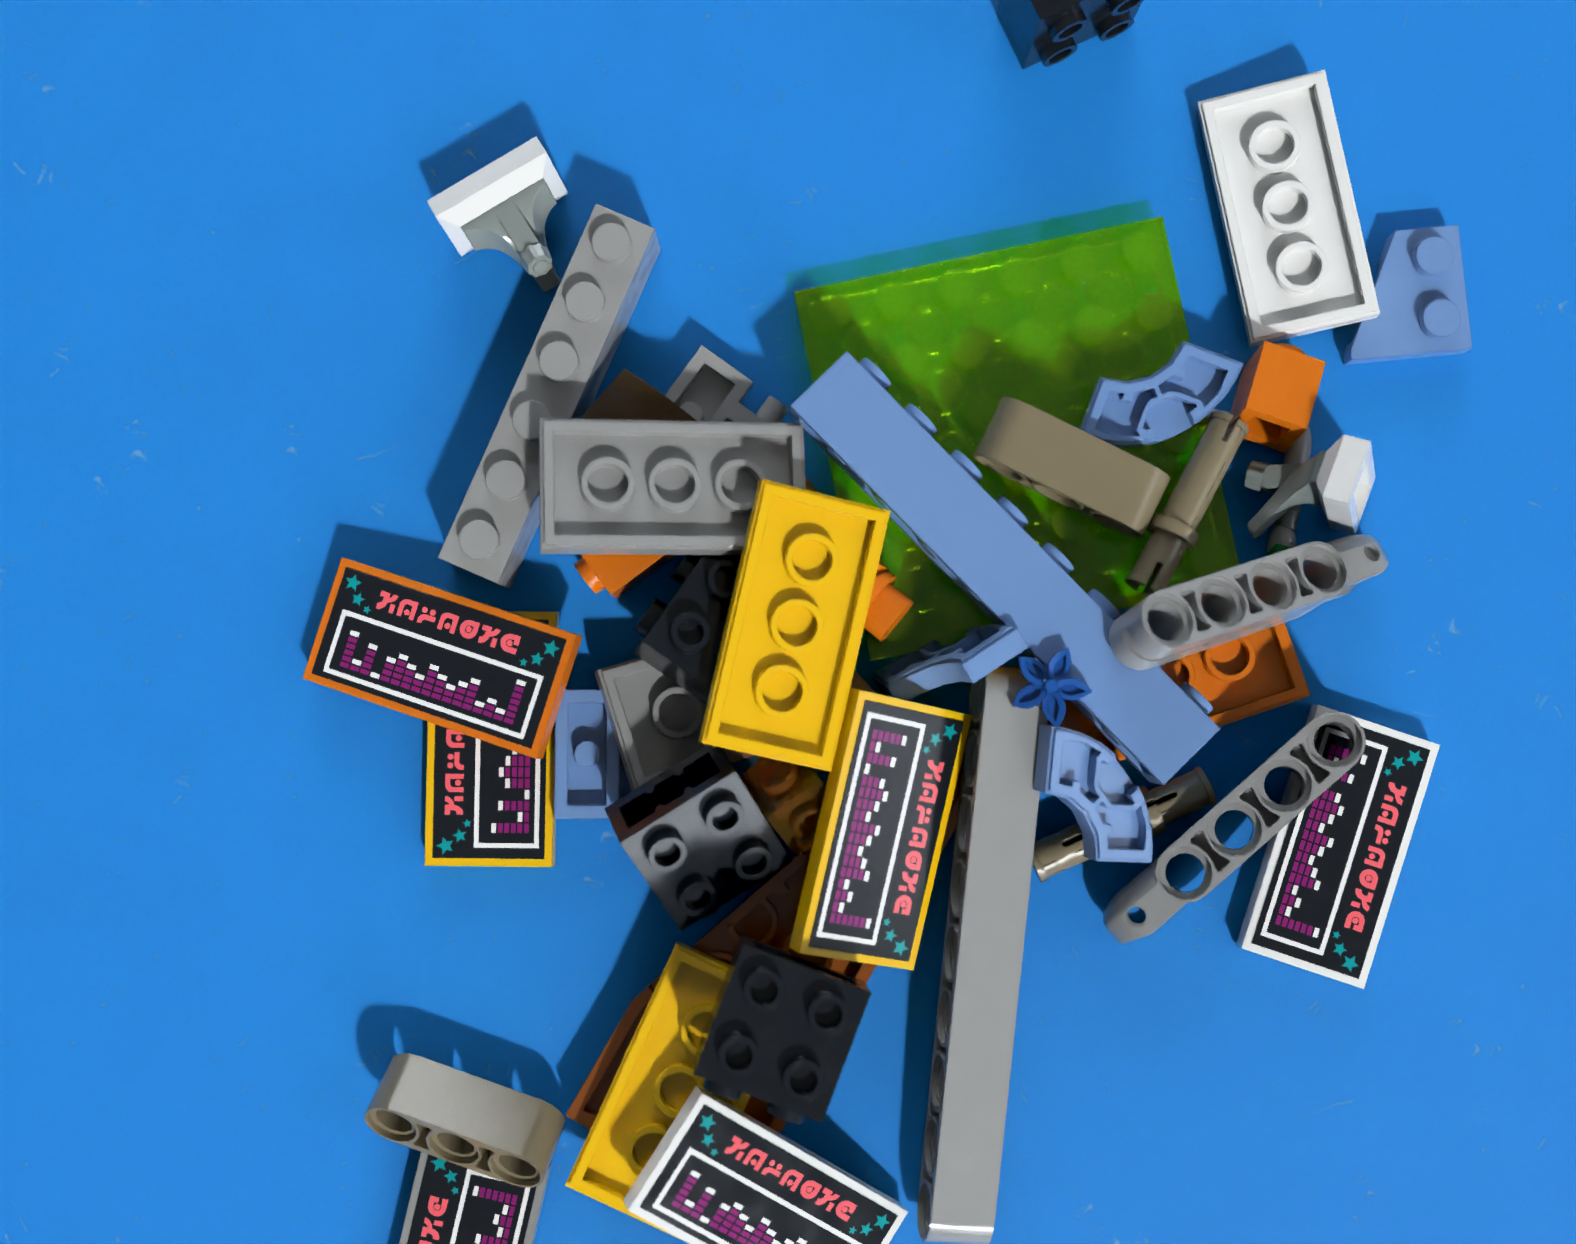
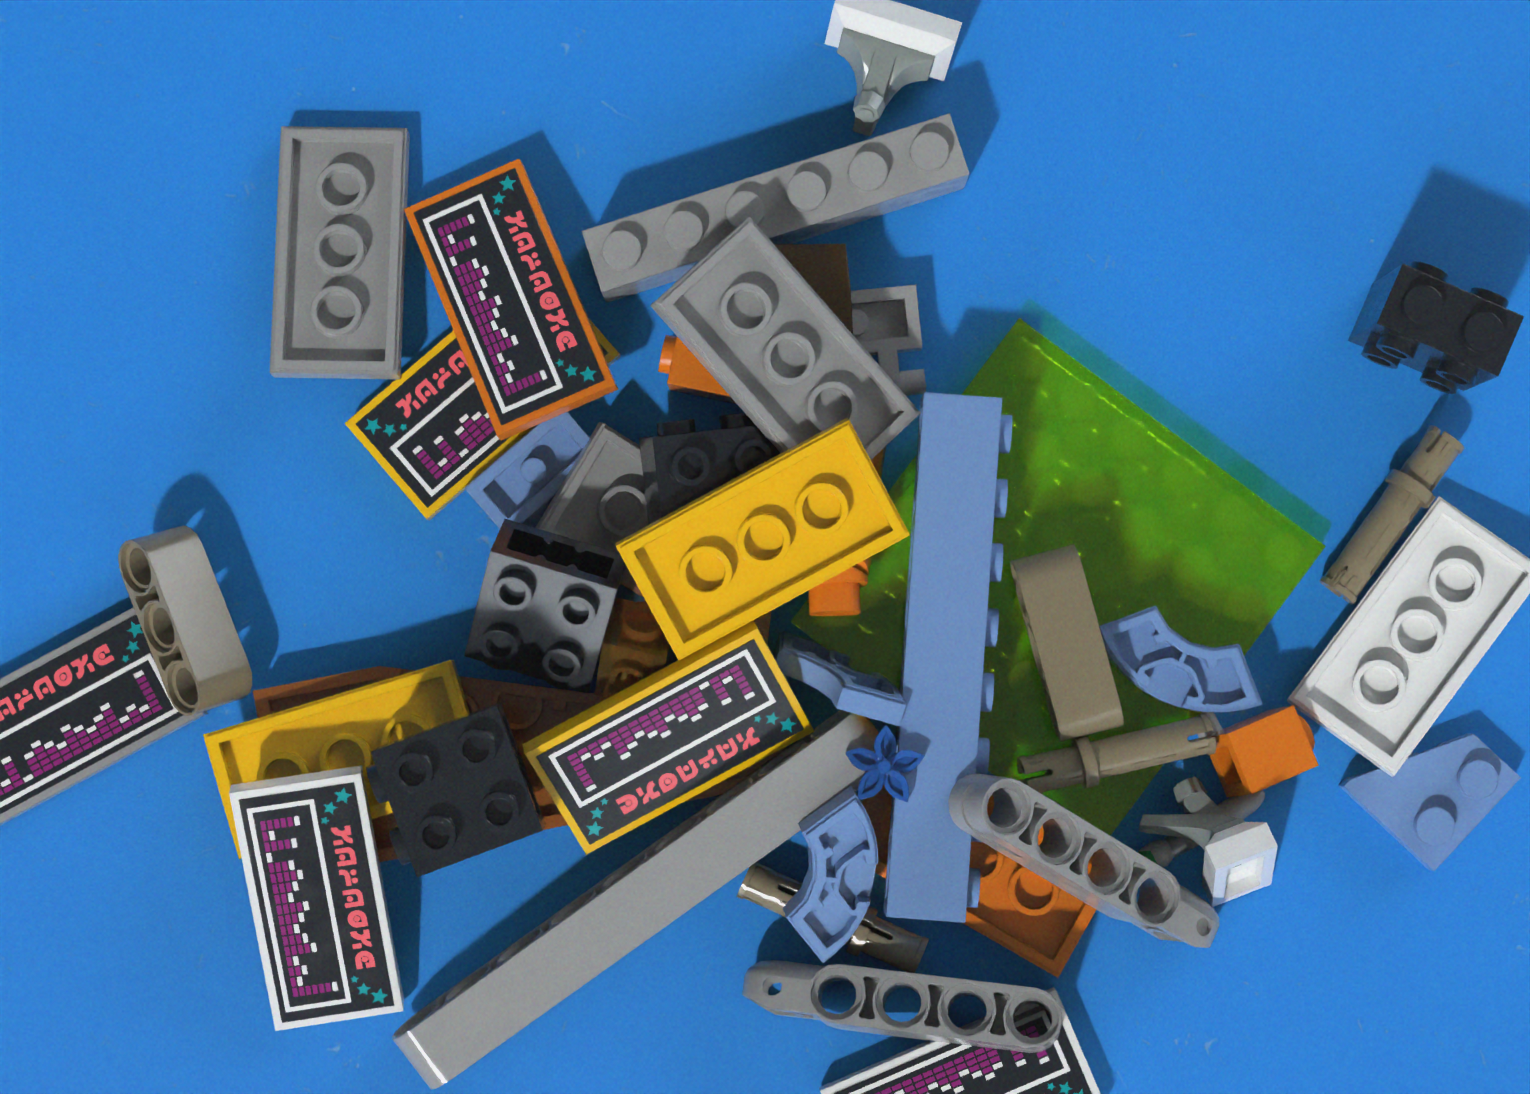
camera: 50 degrees right, 0 degrees up
(293, 755) = (340, 253): none -> light grey tile
(1175, 123) = (1406, 494): none -> dark tan pin

